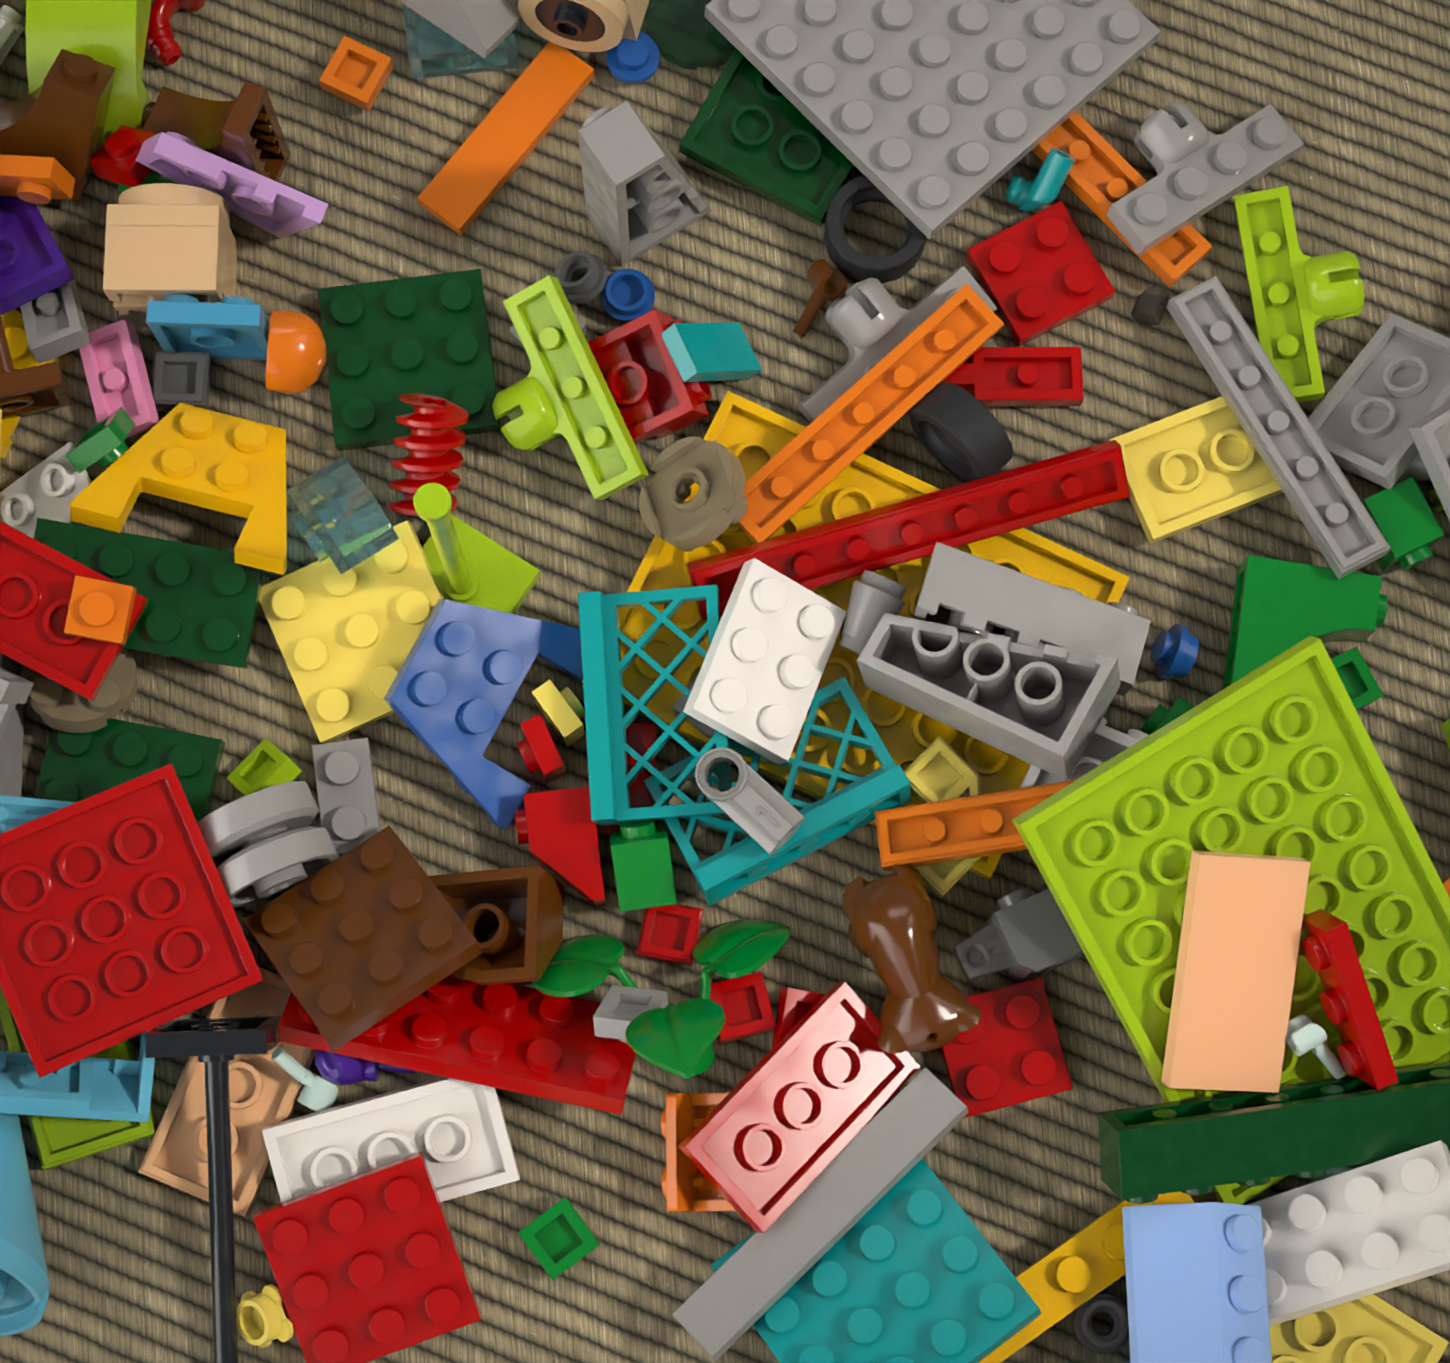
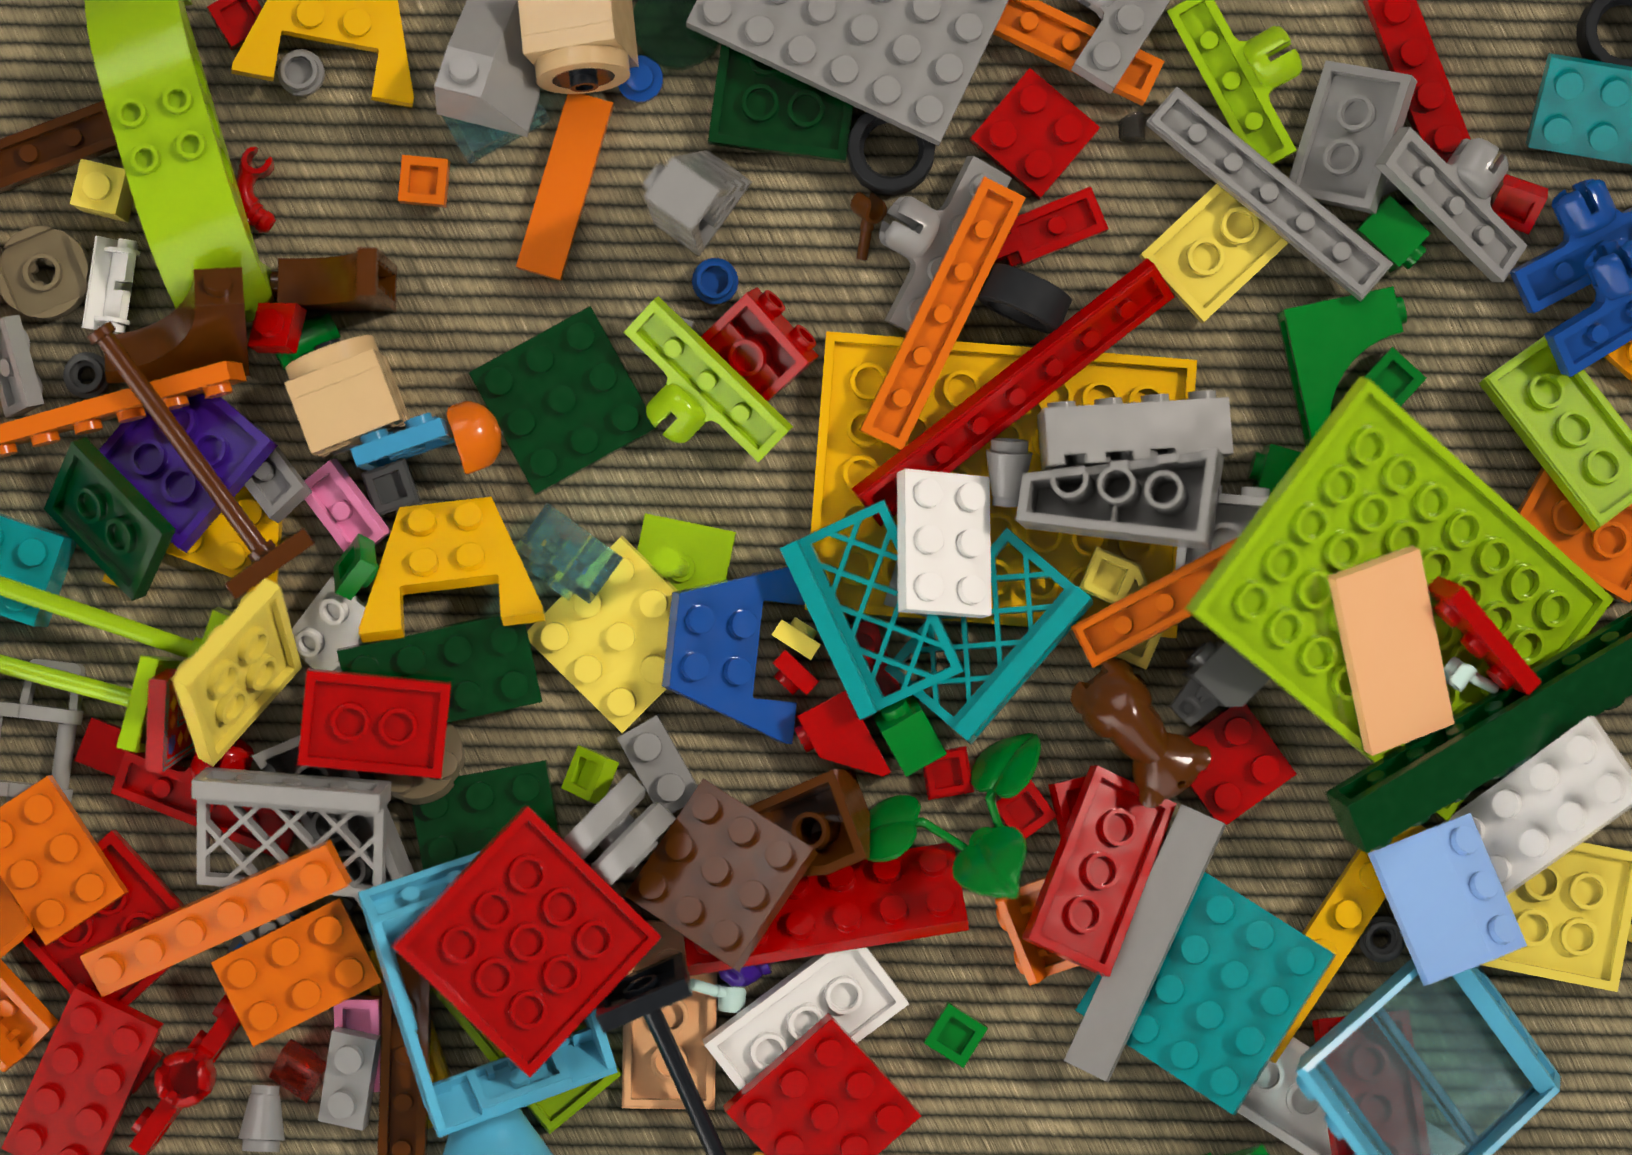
camera: 20 degrees left, 10 degrees up
(100, 610) = (421, 709): orange plate -> none
(250, 195) = (366, 320): lavender wing -> none
(429, 448) = (615, 479): red piece -> none
(581, 276) = (664, 276): dark grey plate -> none
(622, 1006) = (941, 849): light grey plate -> none
(711, 351) = (802, 307): teal tile -> none
(711, 511) = (858, 434): dark tan plate -> none
(751, 802) = (979, 664): light grey piece -> none
(1044, 186) = (1012, 63): teal arm -> none
(1174, 652) = (1252, 405): blue plate -> none

